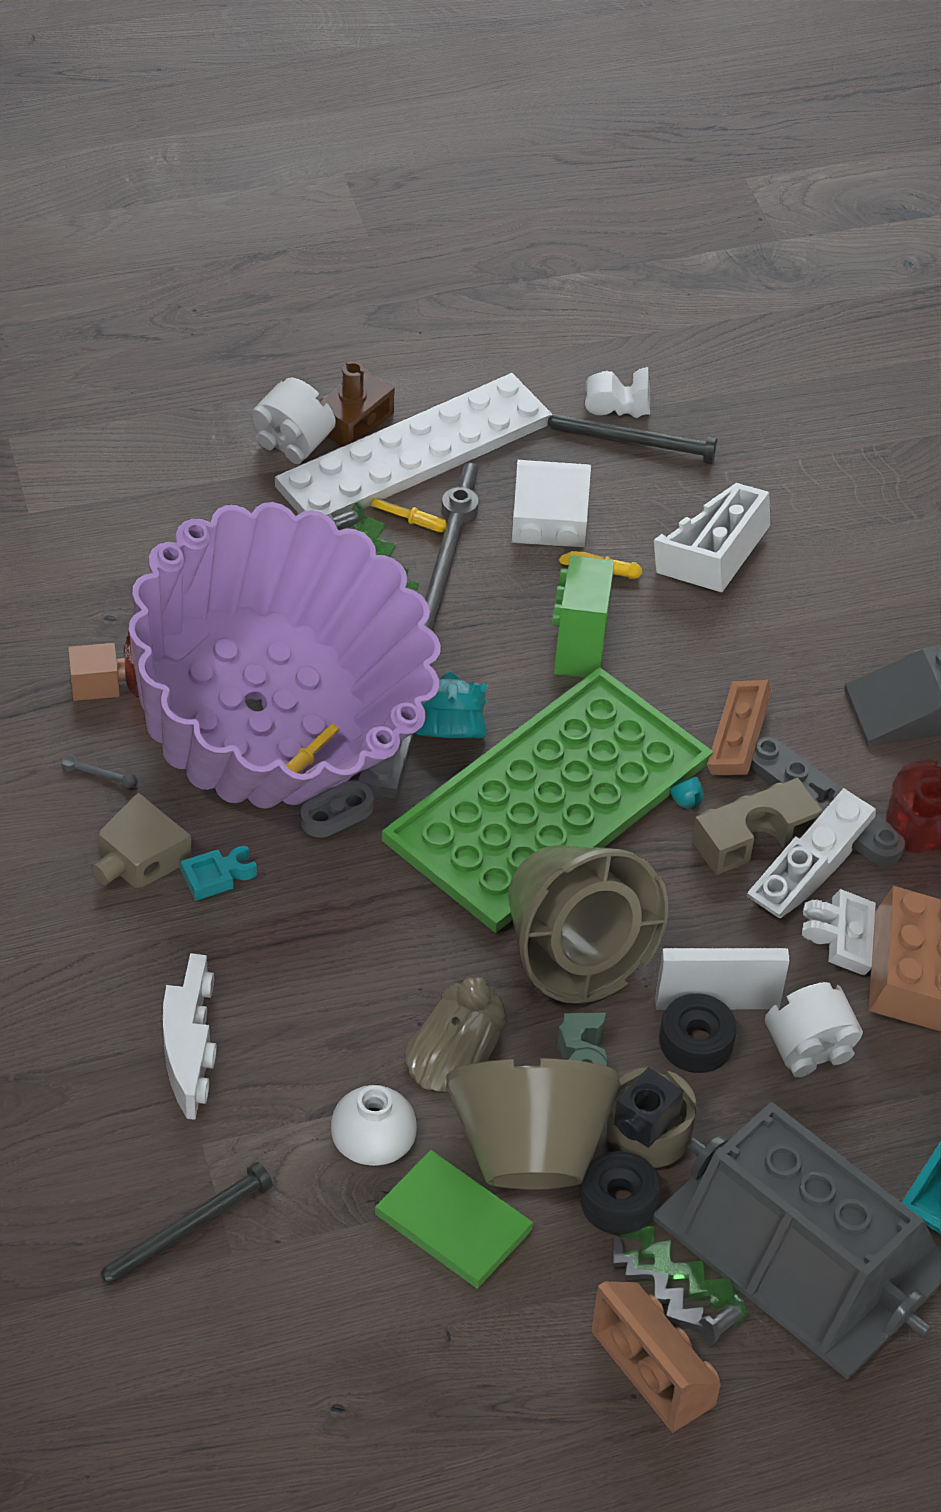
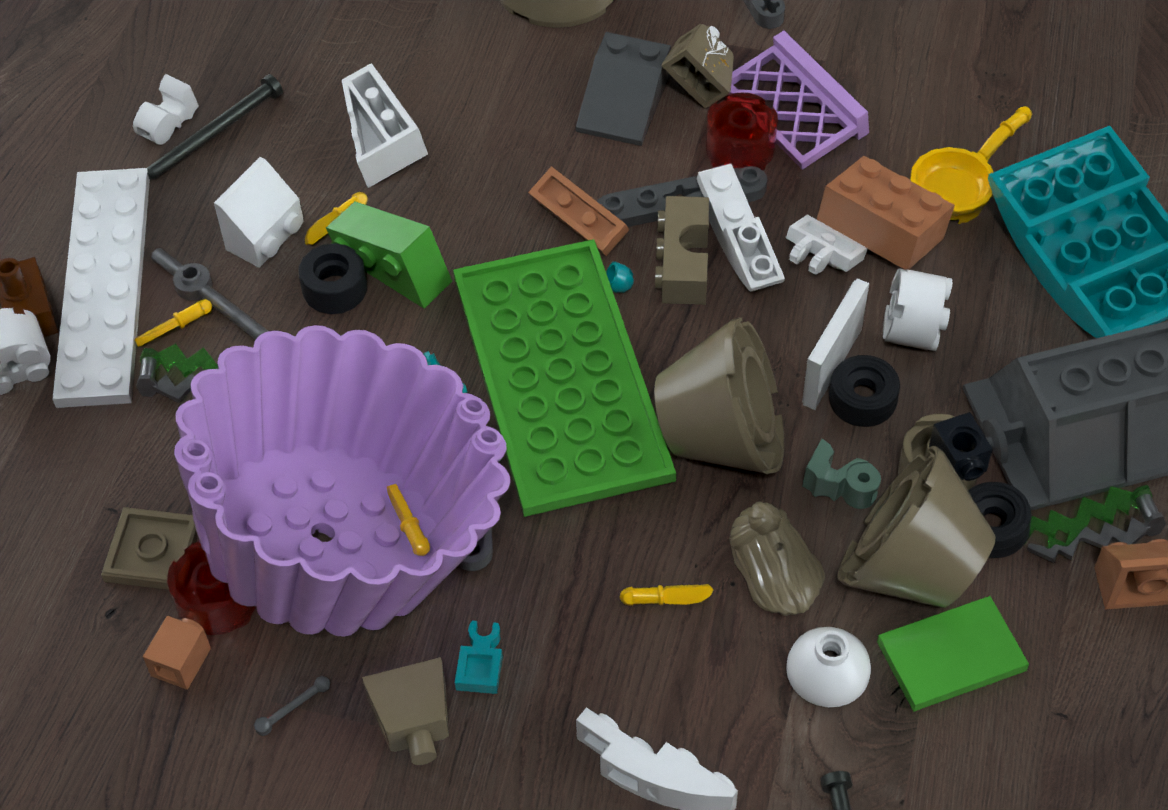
camera: 55 degrees left, 5 degrees up
(370, 976) = (669, 595): none -> yellow piece
(522, 575) = (337, 295): none -> black tyre

